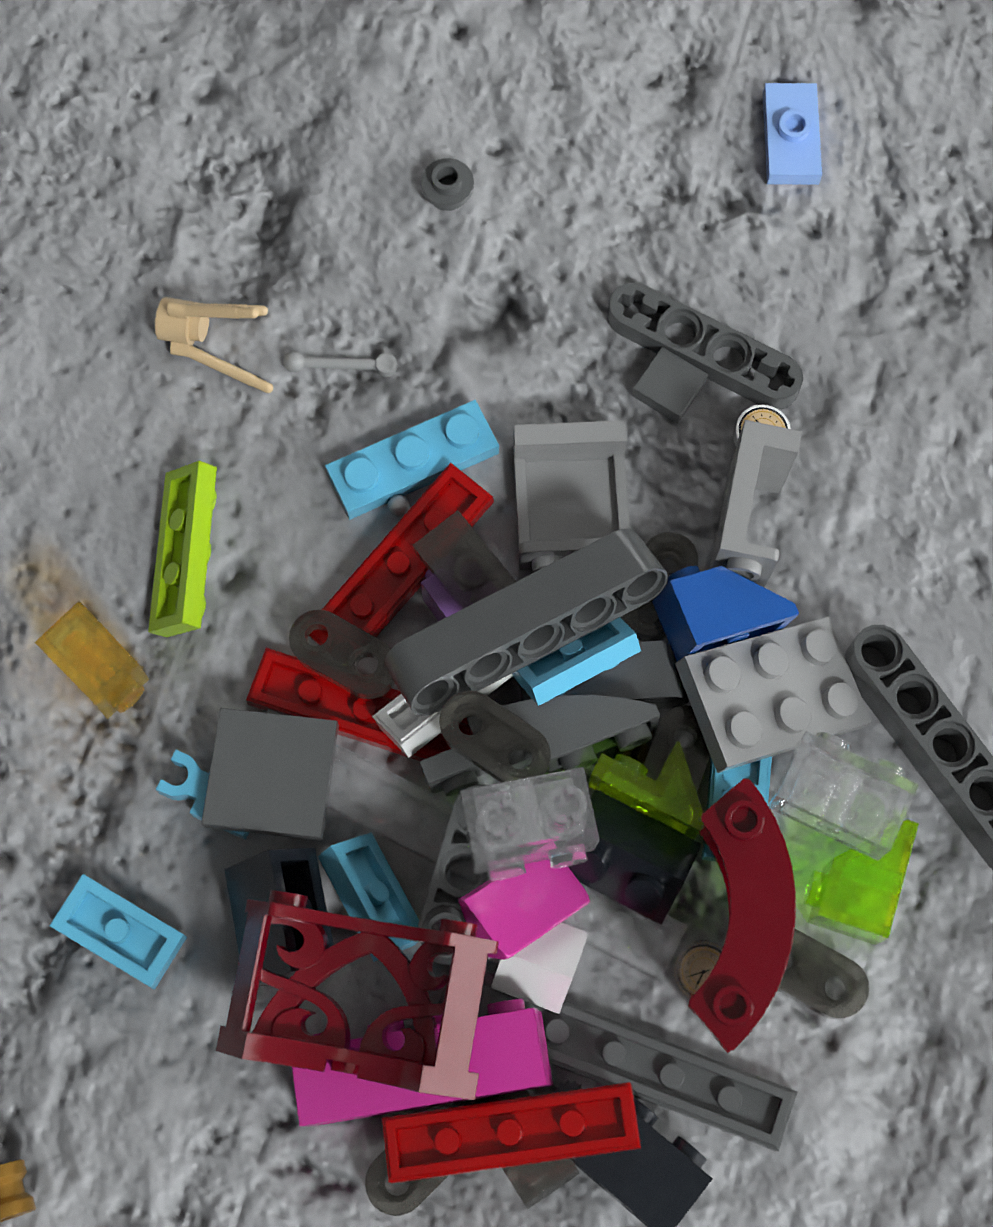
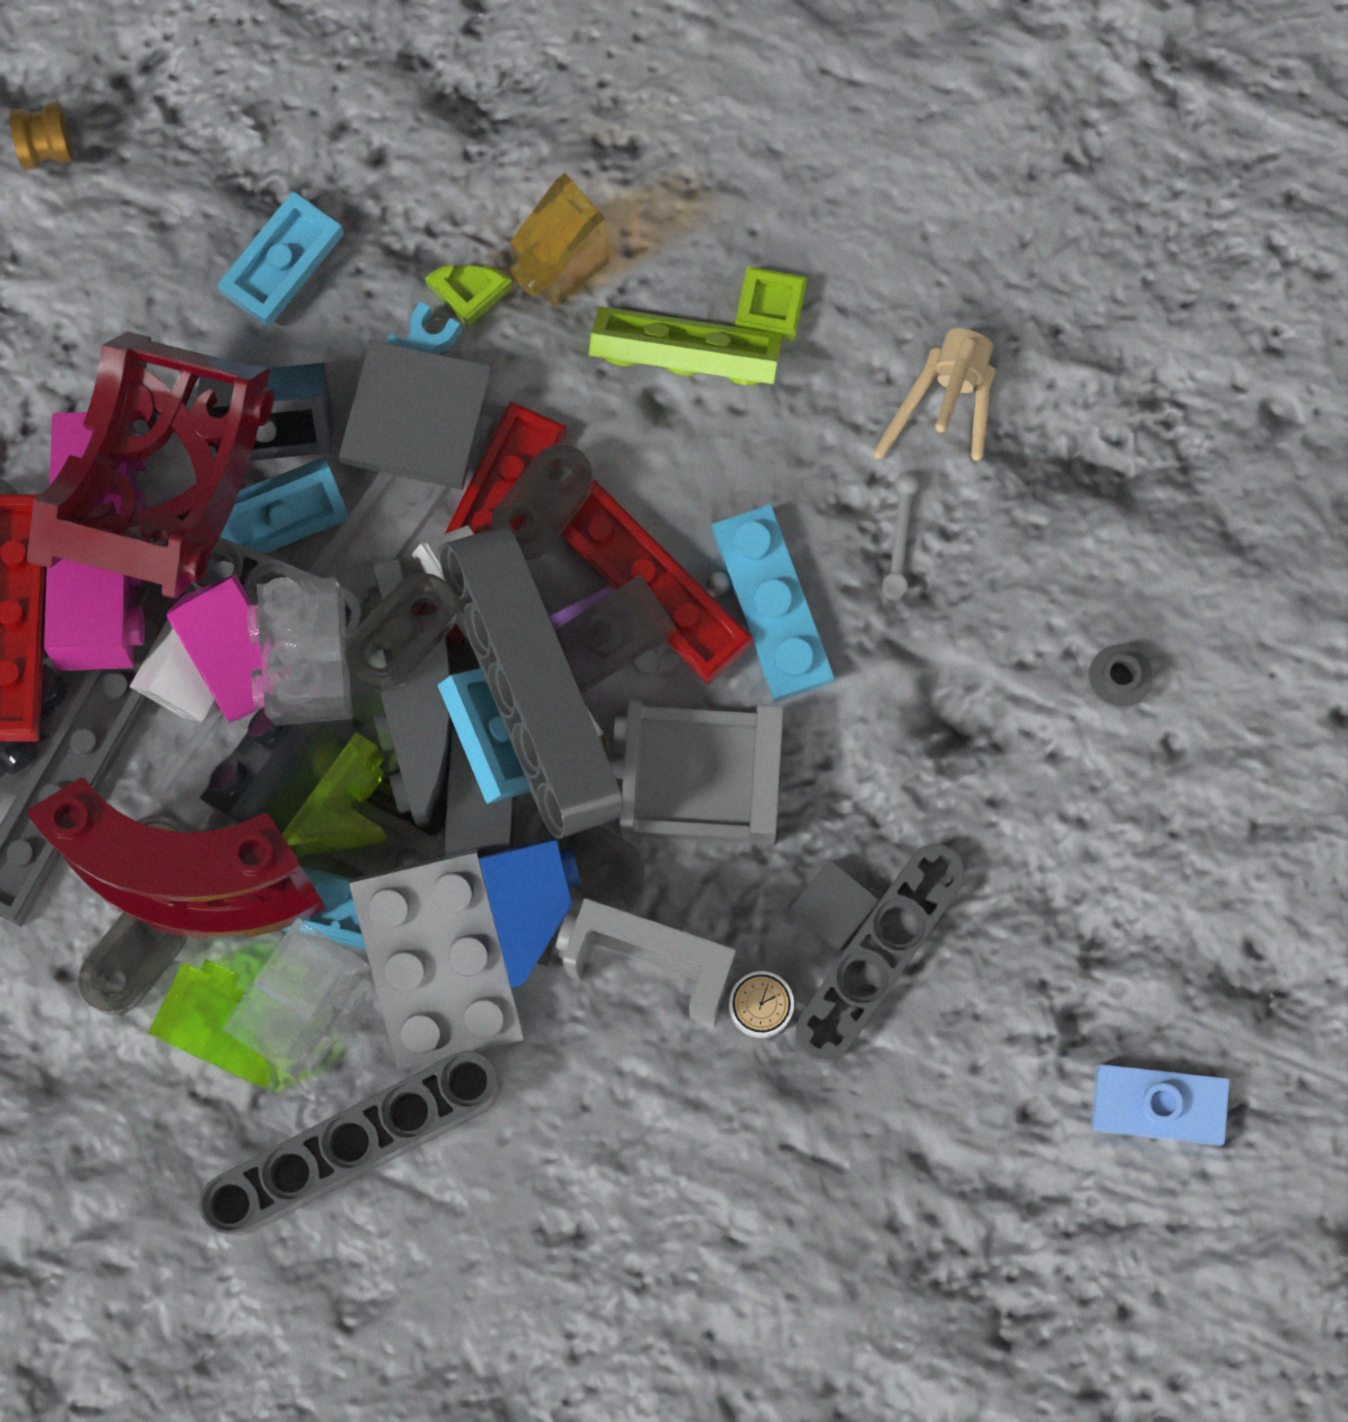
camera: 100 degrees right, 5 degrees up
(135, 487) = (771, 302): none -> lime tile
(137, 754) = (469, 289): none -> lime tile

